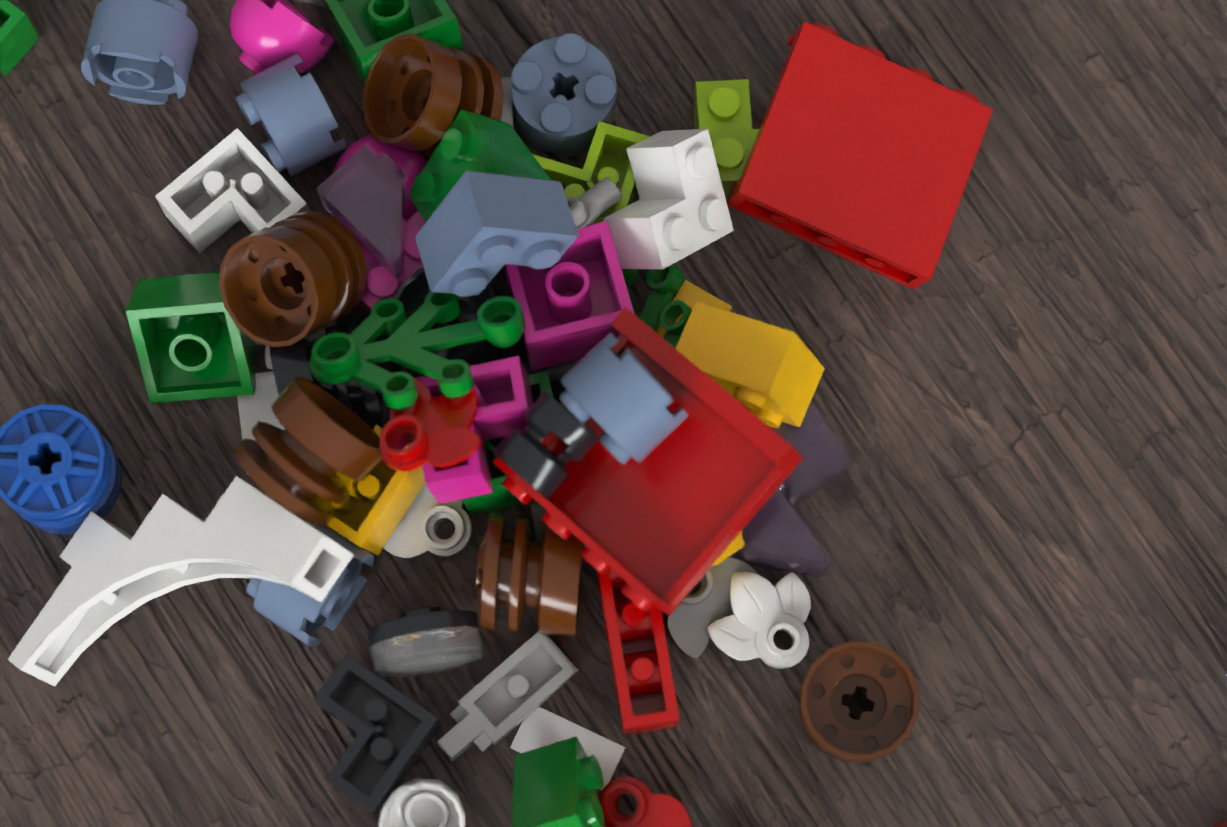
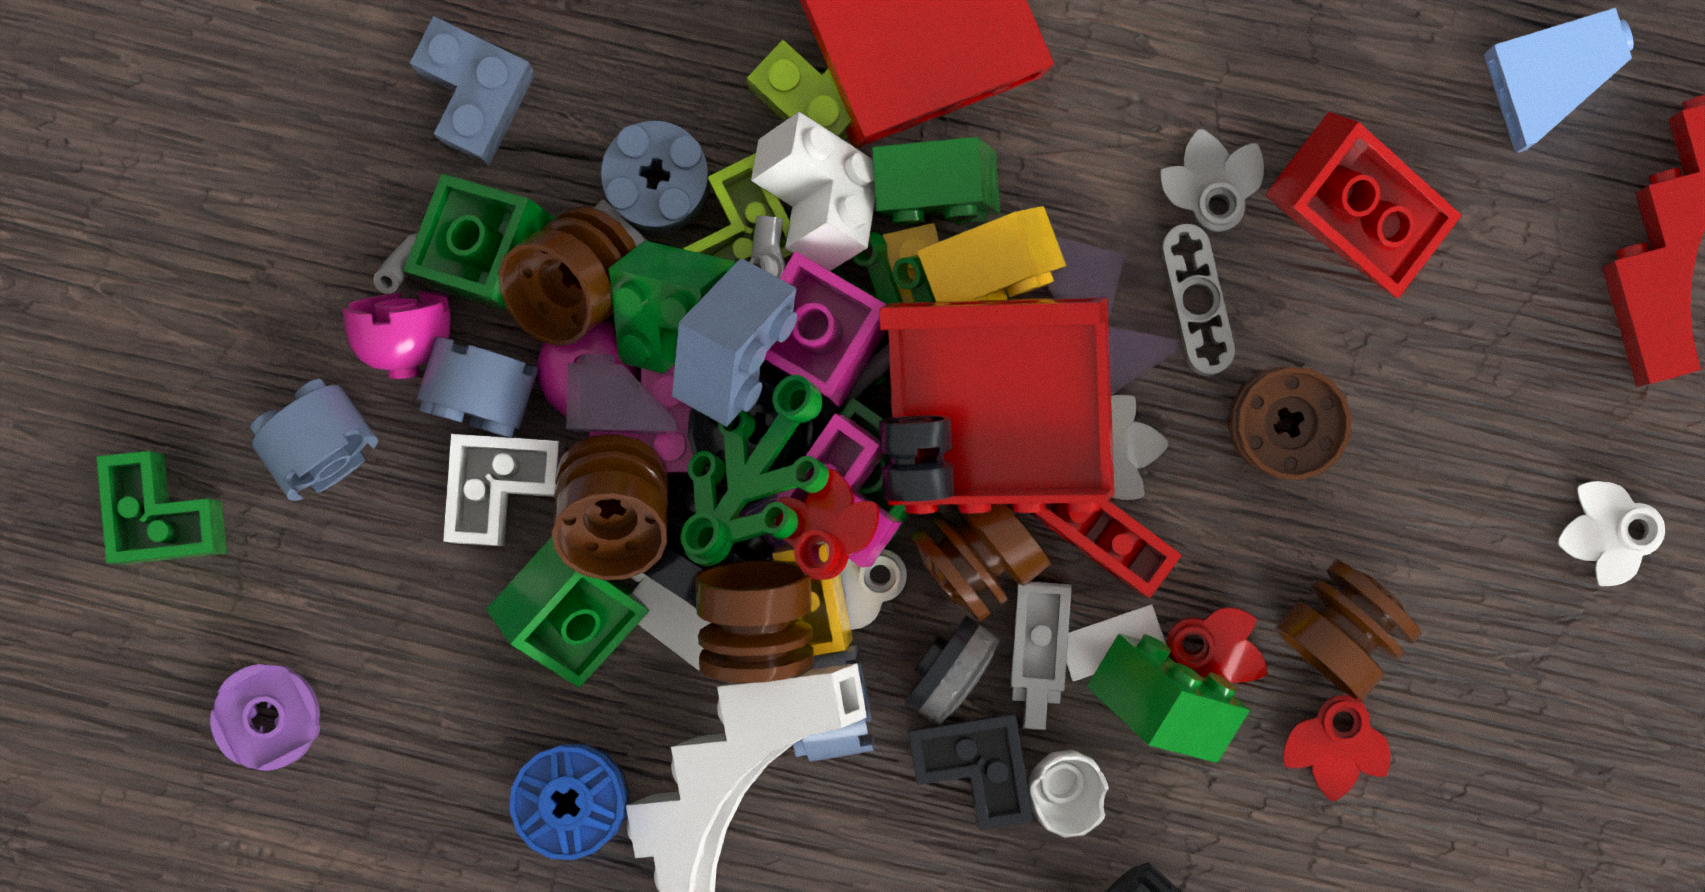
camera: 40 degrees left, 10 degrees up
(621, 400) = (944, 378): sand blue brick -> none
(760, 613) = (1159, 422): white plate -> none
(764, 274) = (937, 177): none -> green brick
(883, 512) = (1176, 264): none -> light grey beam
(977, 474) = (1211, 174): none -> light grey plate
(1071, 599) = (1363, 203): none -> red slope

